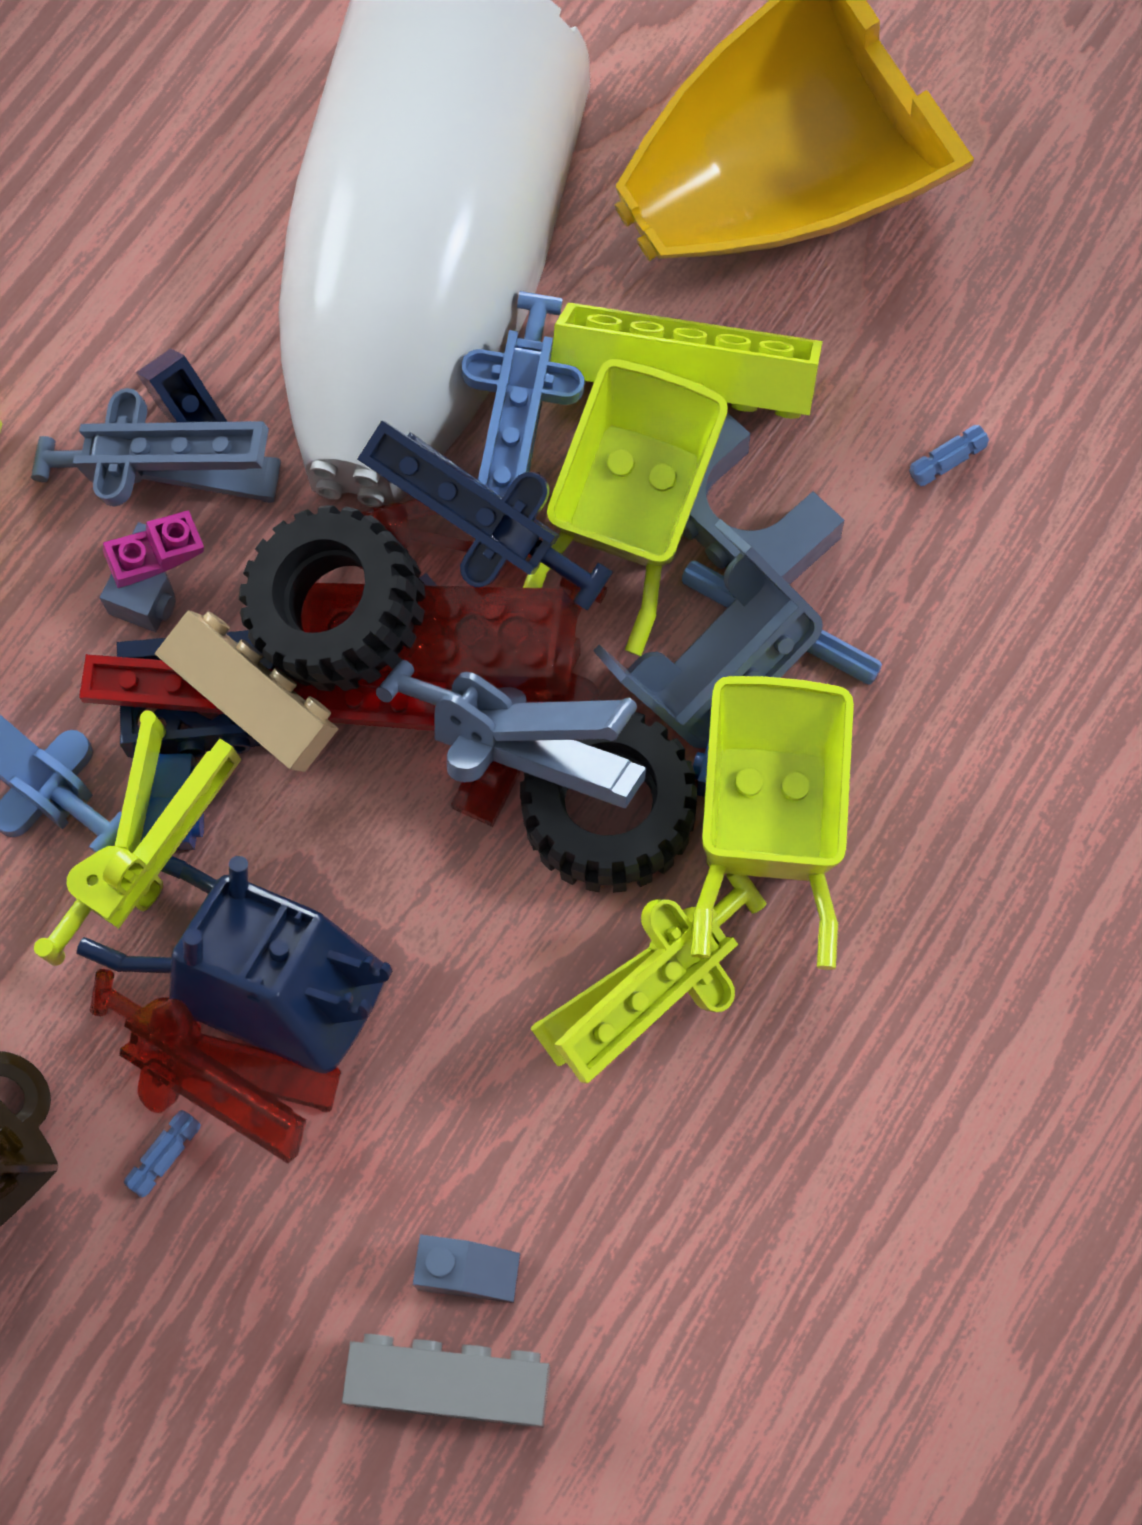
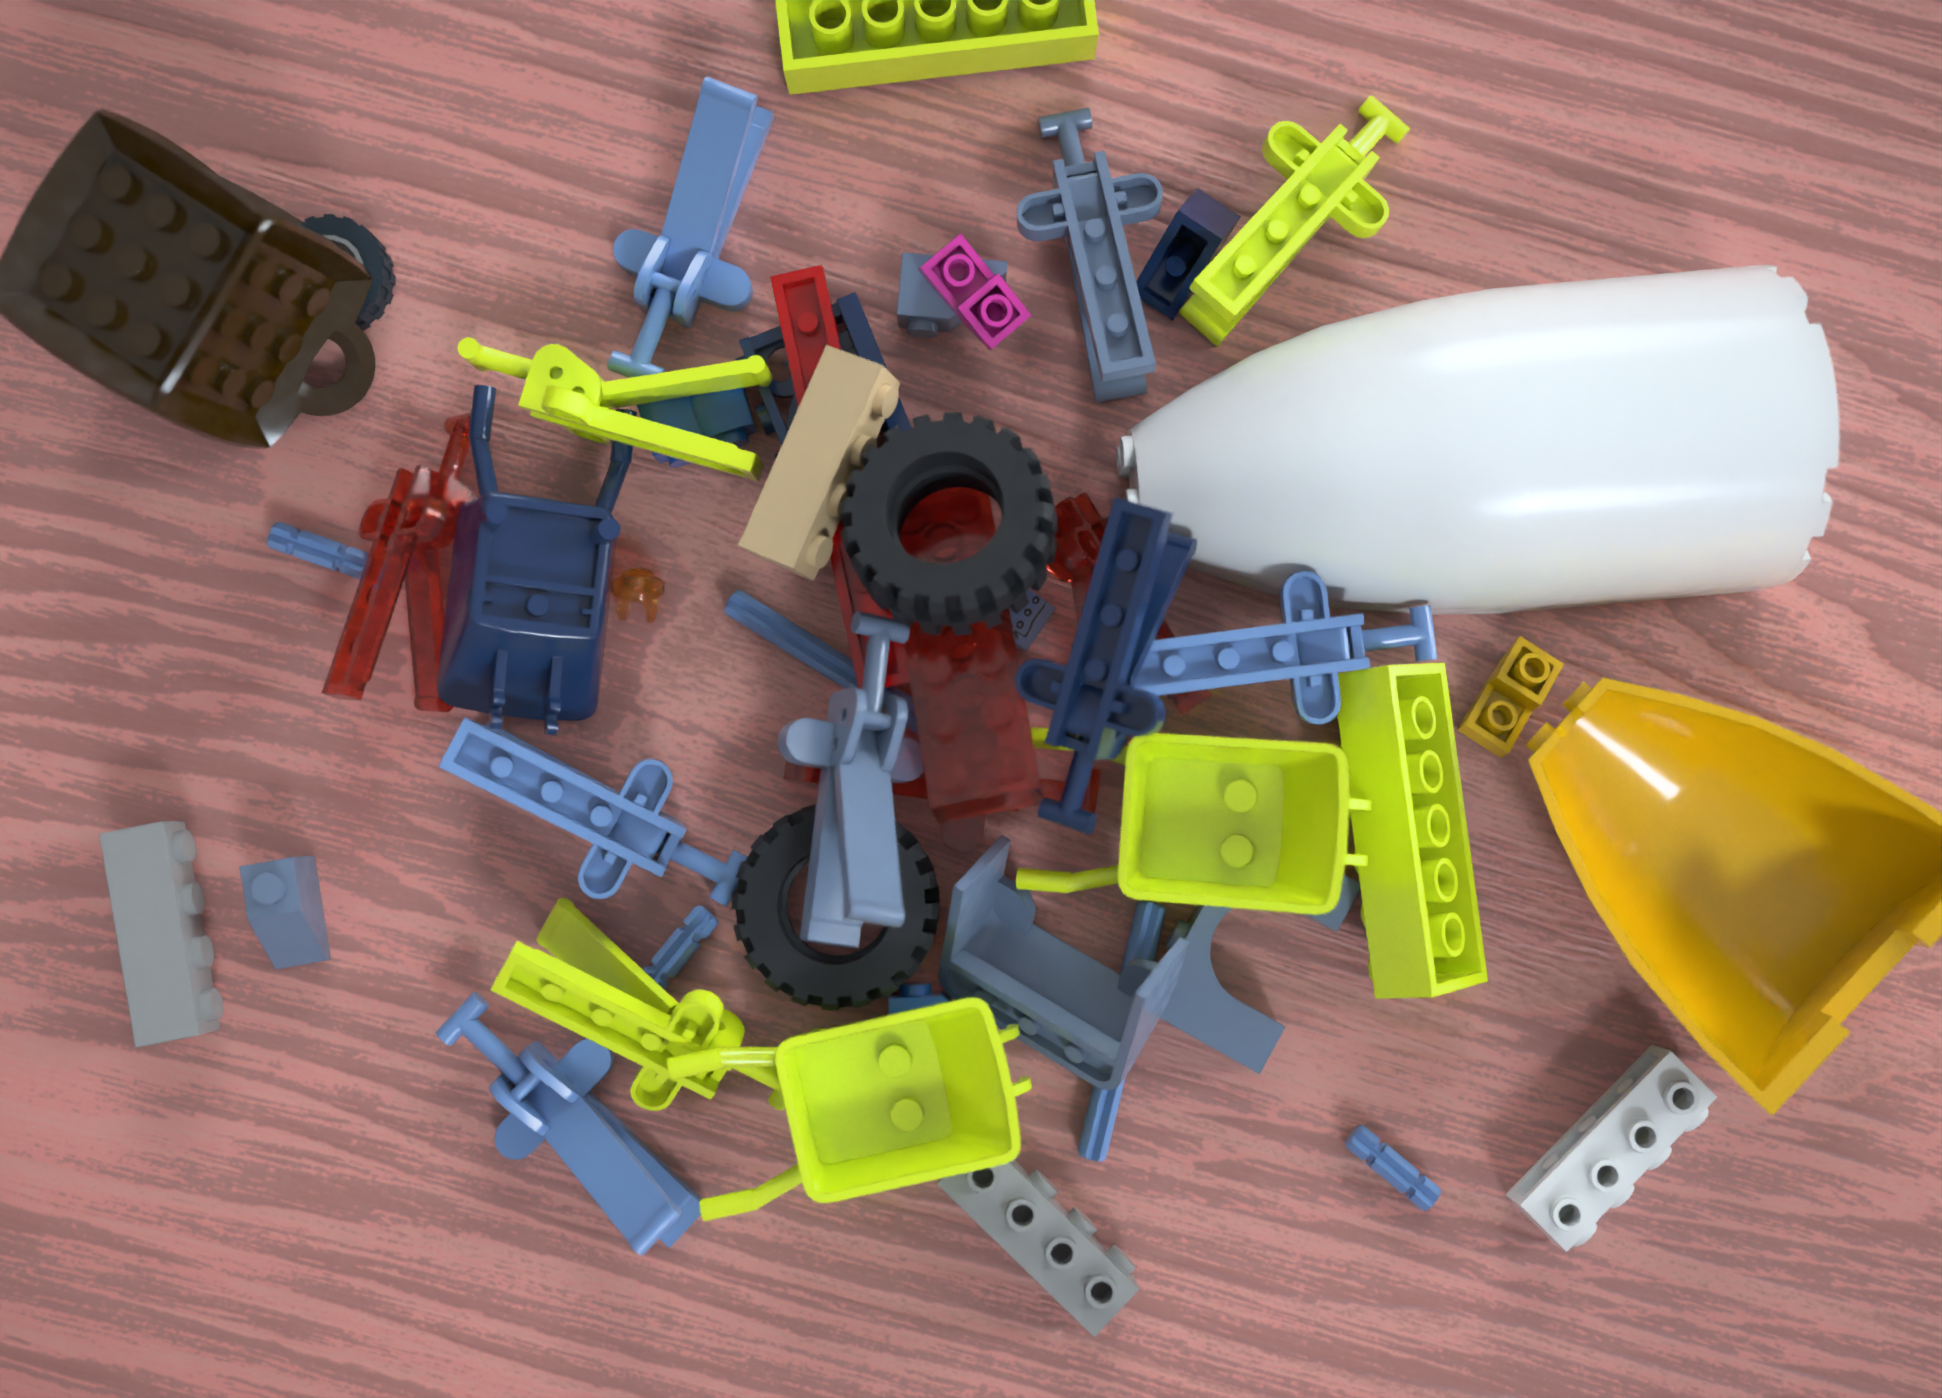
camera: 65 degrees right, 15 degrees up
(171, 283) = (1320, 185): none -> neon yellow piece
(295, 886) = (641, 587): none -> clear orange plate
(382, 780) = (803, 645): none -> medium blue axle
(484, 952) = (620, 825): none -> medium blue piece
(600, 941) = (681, 945): none -> medium blue axle
(609, 272) = (1510, 696): none -> yellow slope
(703, 1086) = (556, 1104): none -> medium blue piece
(928, 724) = (1047, 1240): none -> light grey brick
(977, 297) = (1612, 1147): none -> white brick

